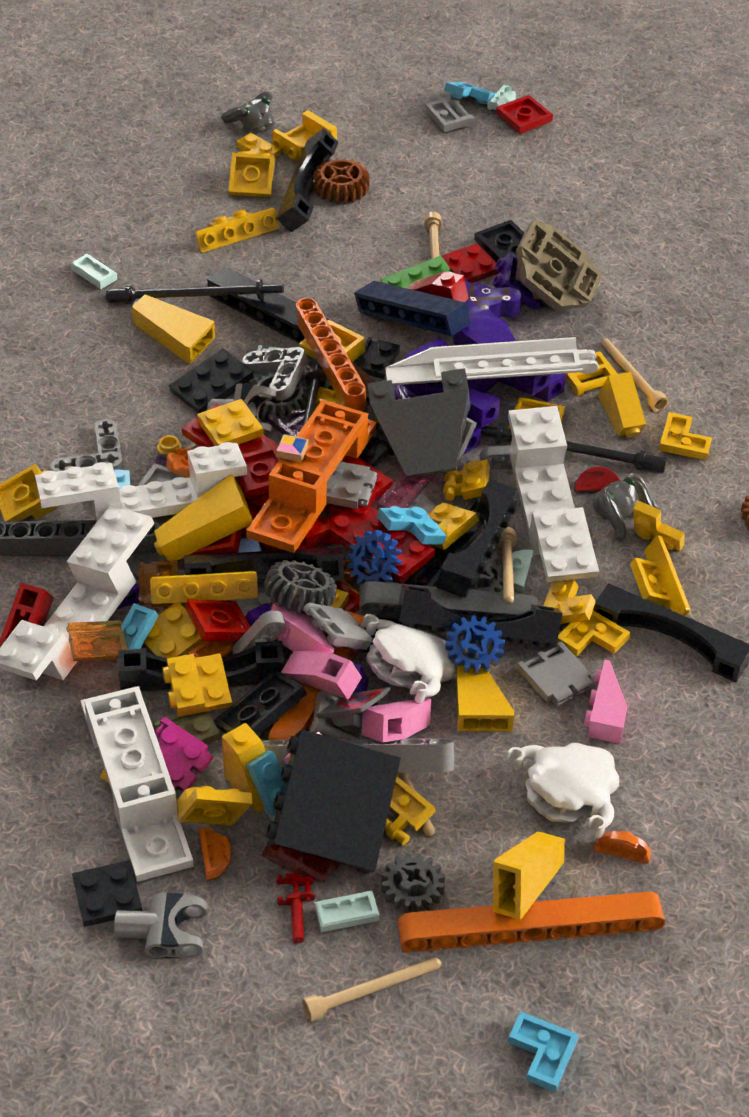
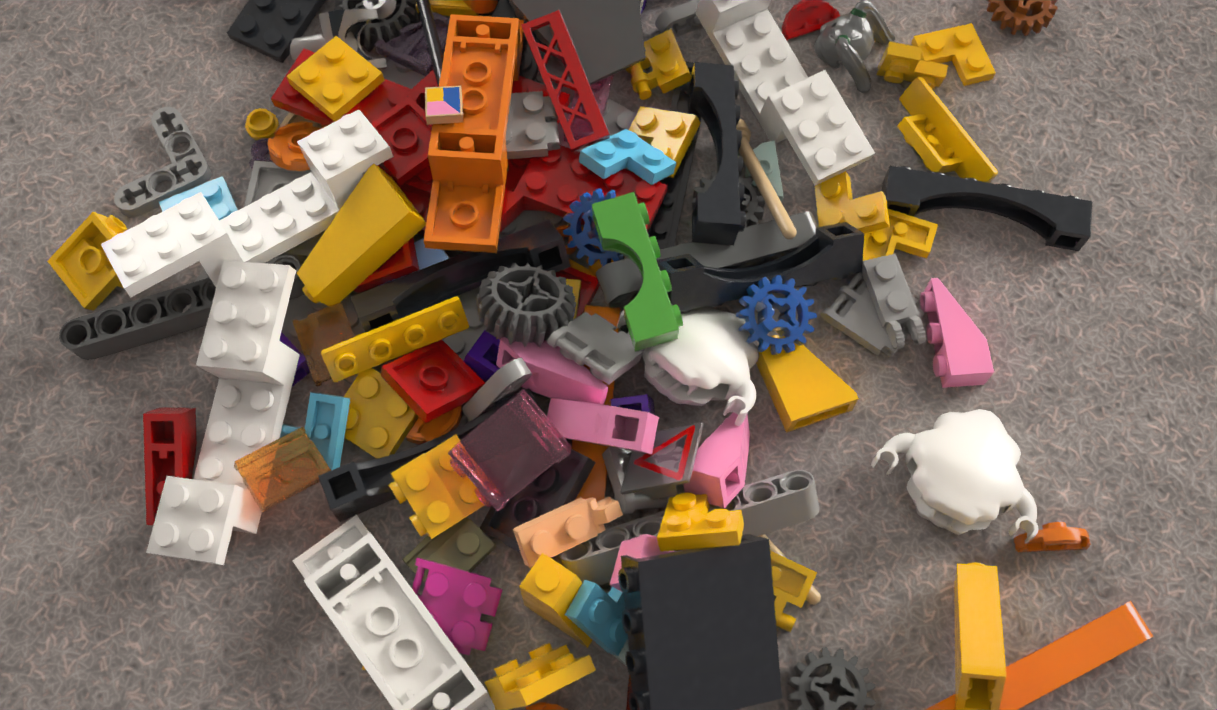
camera: 20 degrees left, 20 degrees up
(251, 667) = (509, 450): none -> clear pink panel
(271, 723) = (565, 527): none -> light nougat hinge
(359, 735) = (692, 526): none -> yellow plate
(379, 608) = (623, 230): none -> bright green arch
(395, 455) = (577, 76): none -> red fence
(570, 664) = (893, 299): none -> light grey hinge
(708, 530) = (961, 47): none -> yellow plate

